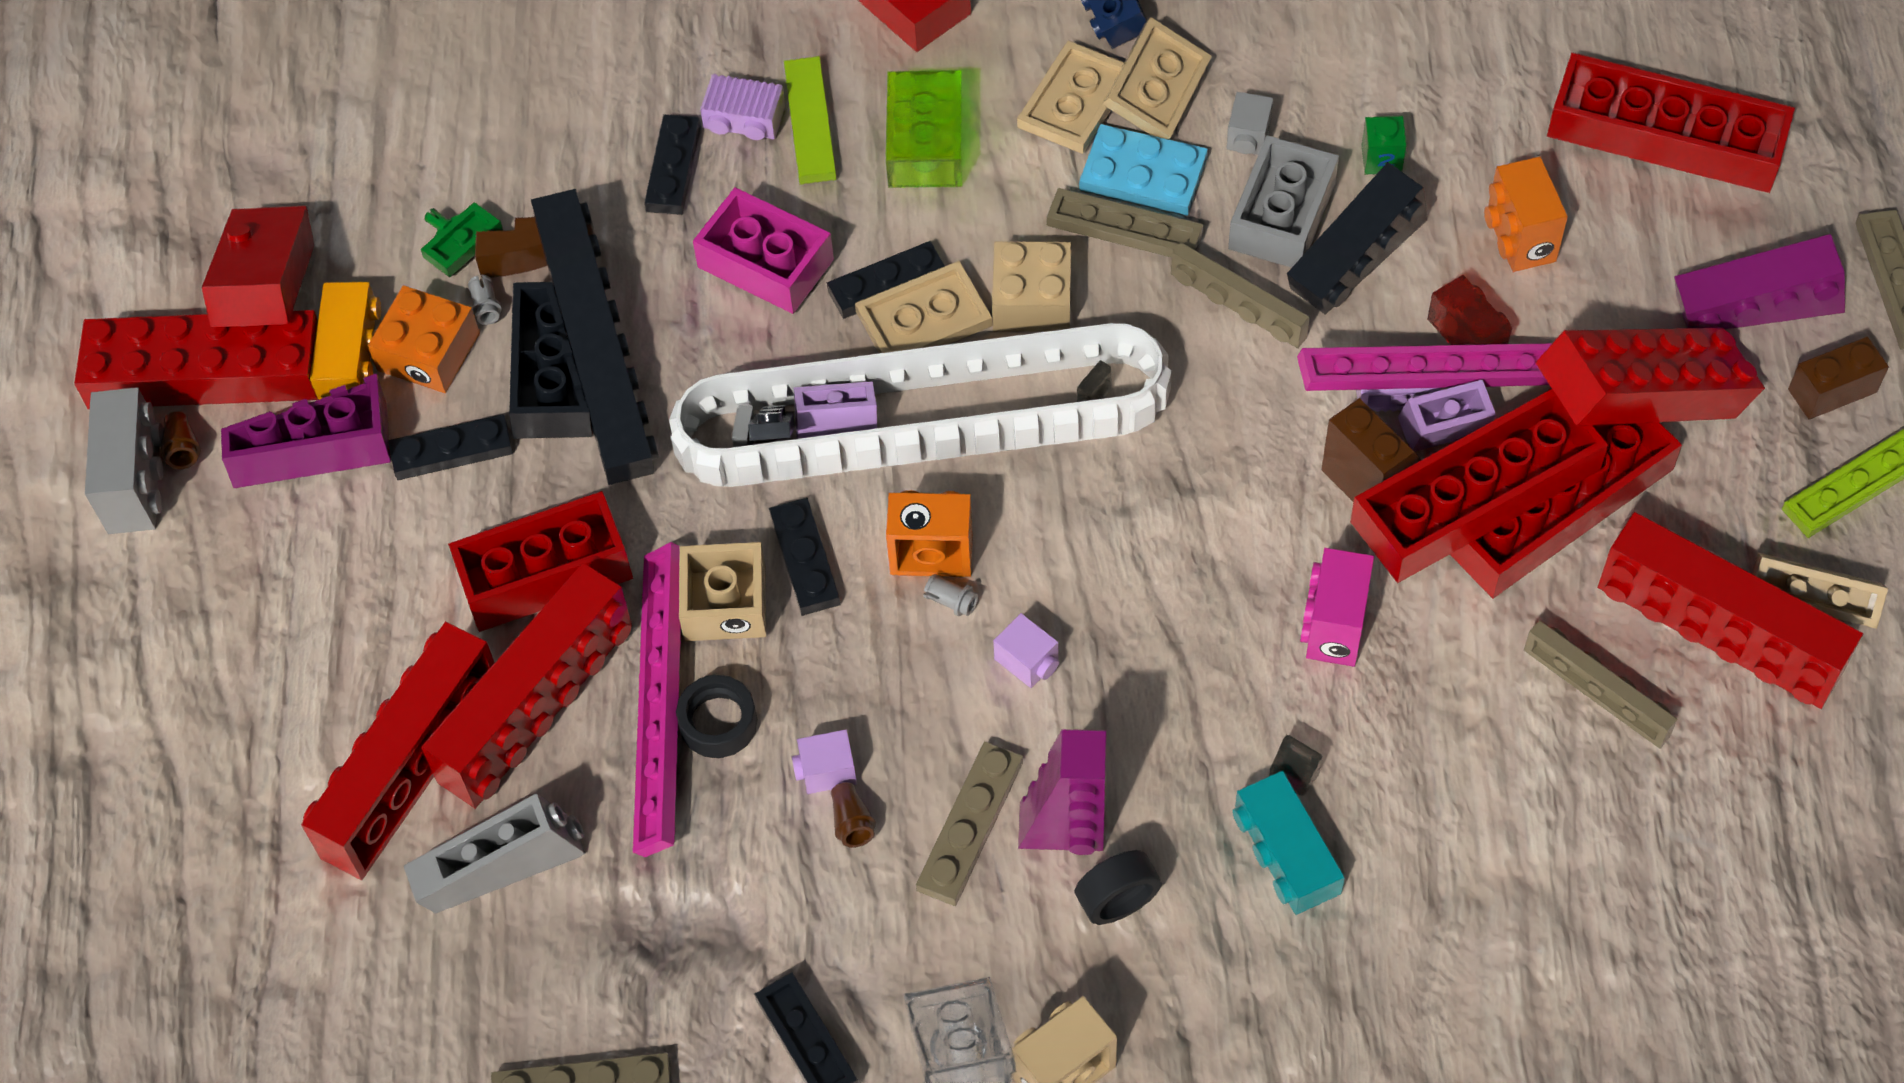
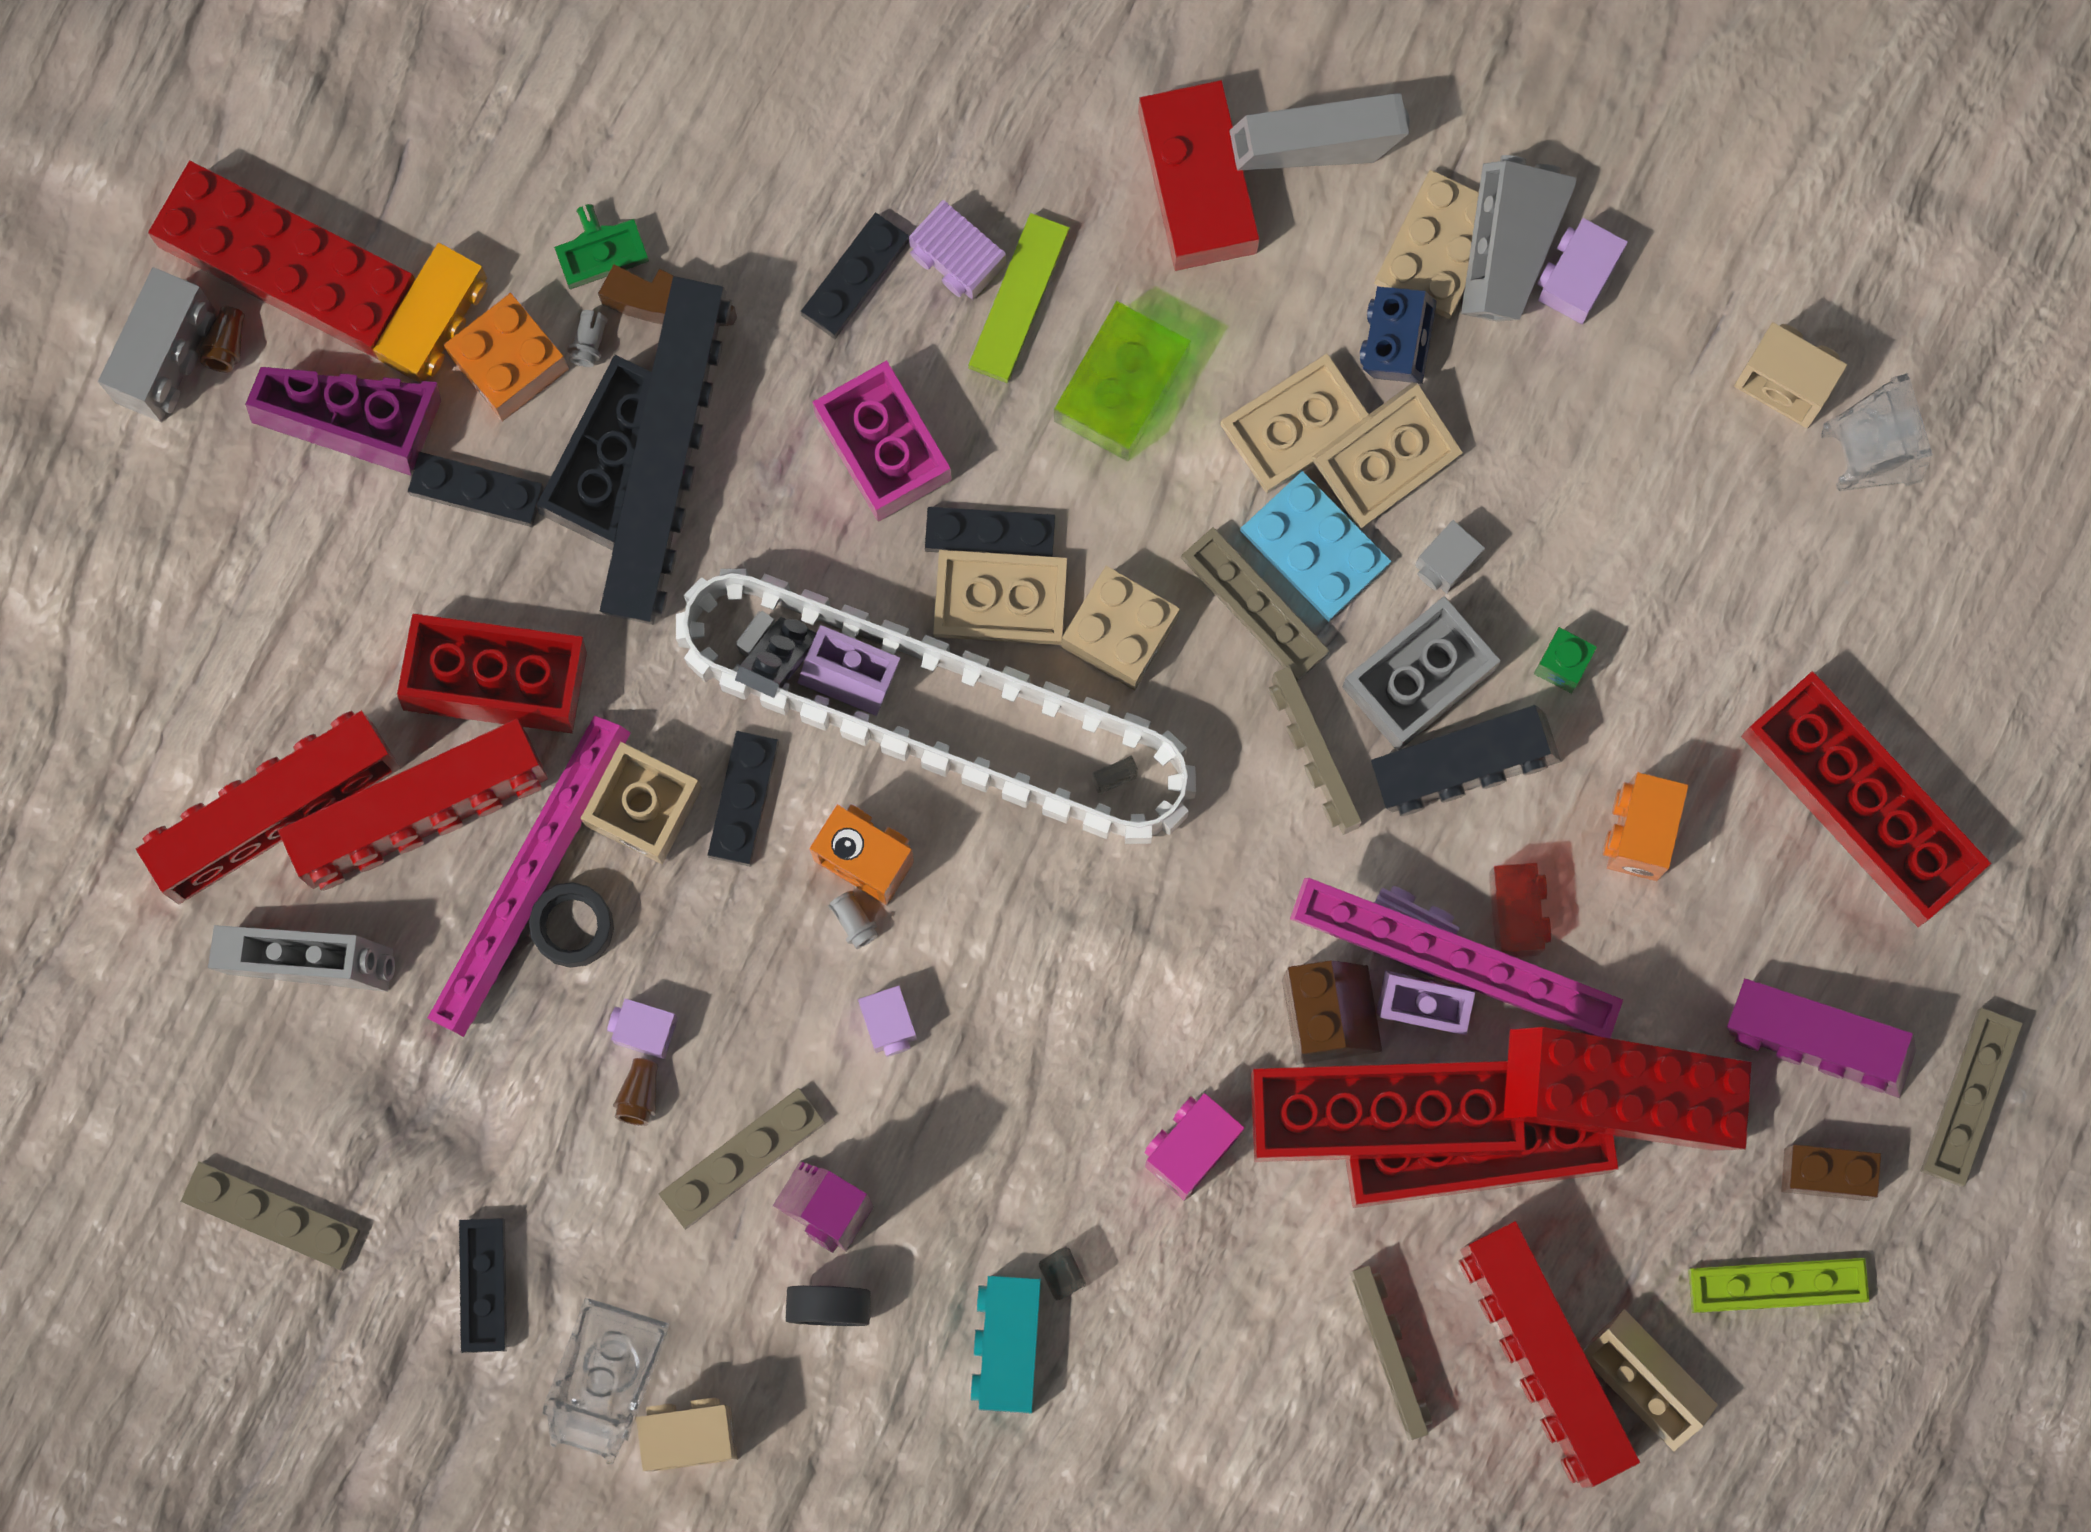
camera: 25 degrees right, 20 degrees up
(258, 266) = (382, 194): red brick -> none

